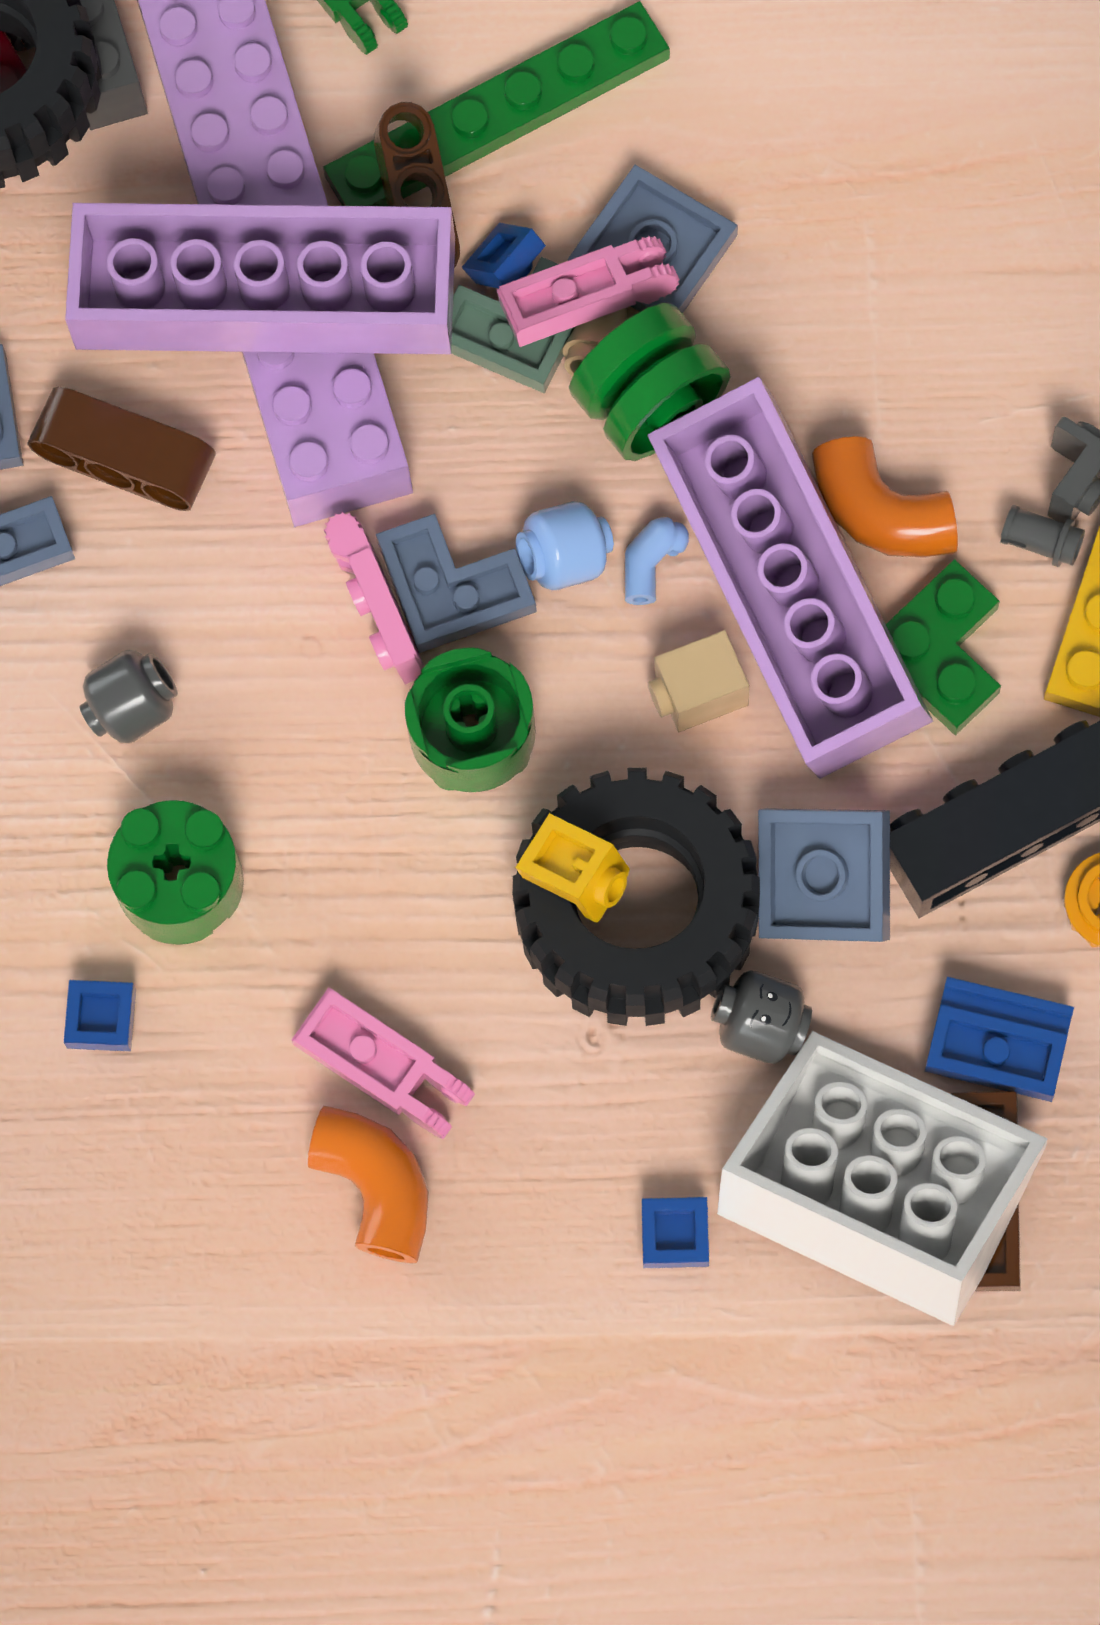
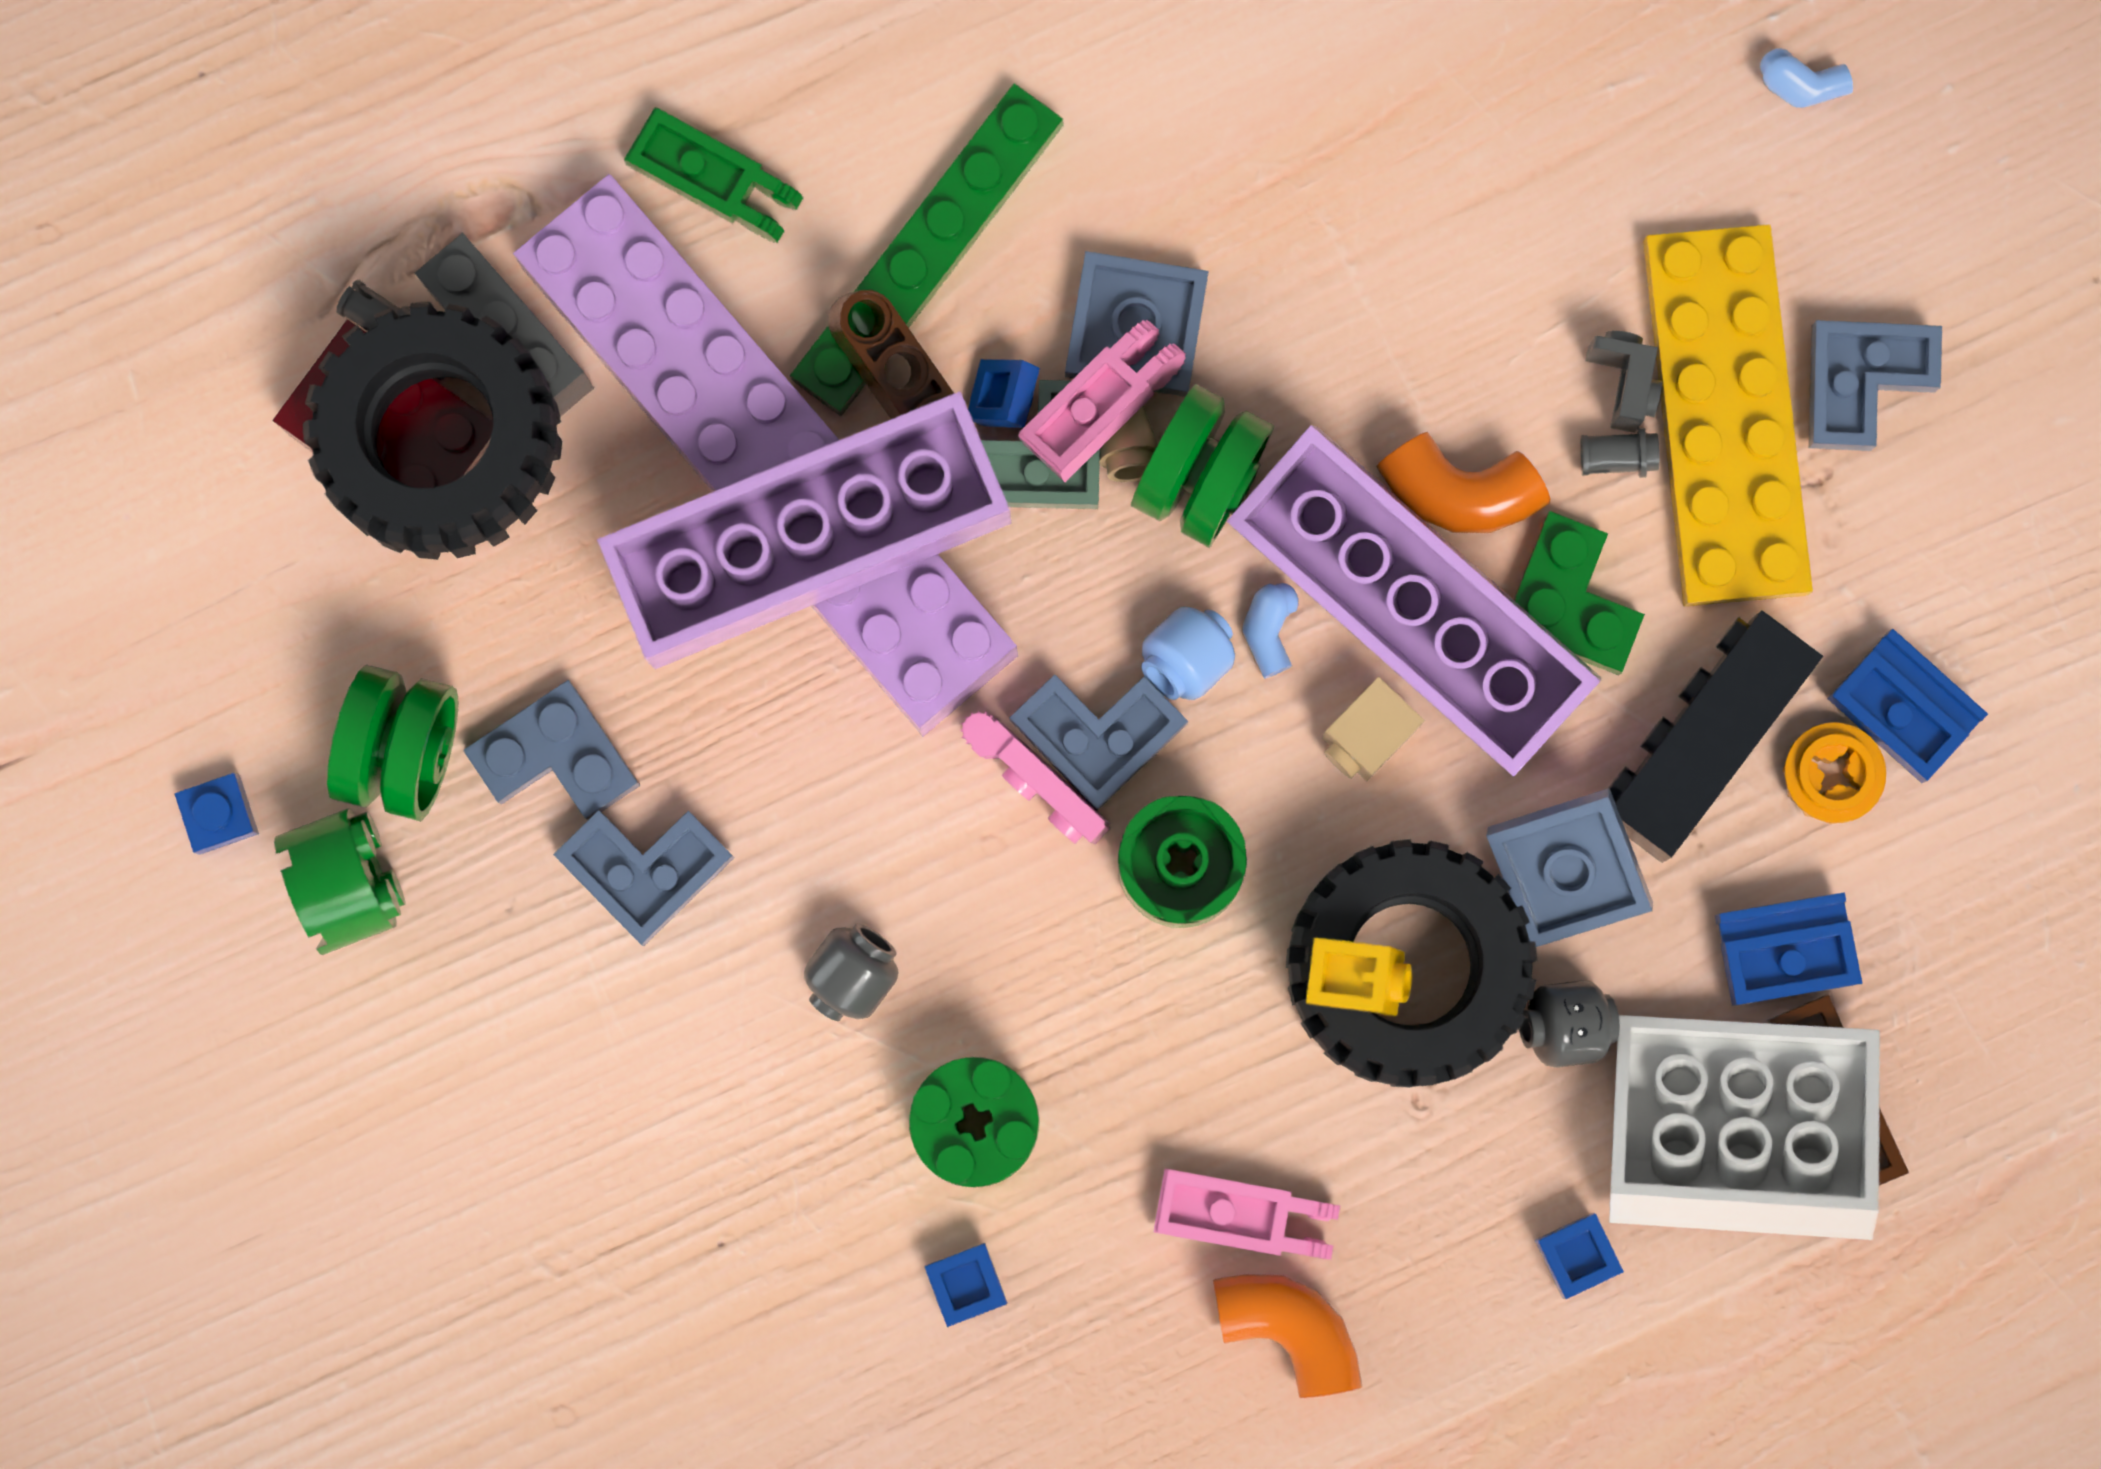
camera: 25 degrees left, 10 degrees up
(121, 448) = (730, 734): reddish brown beam -> none

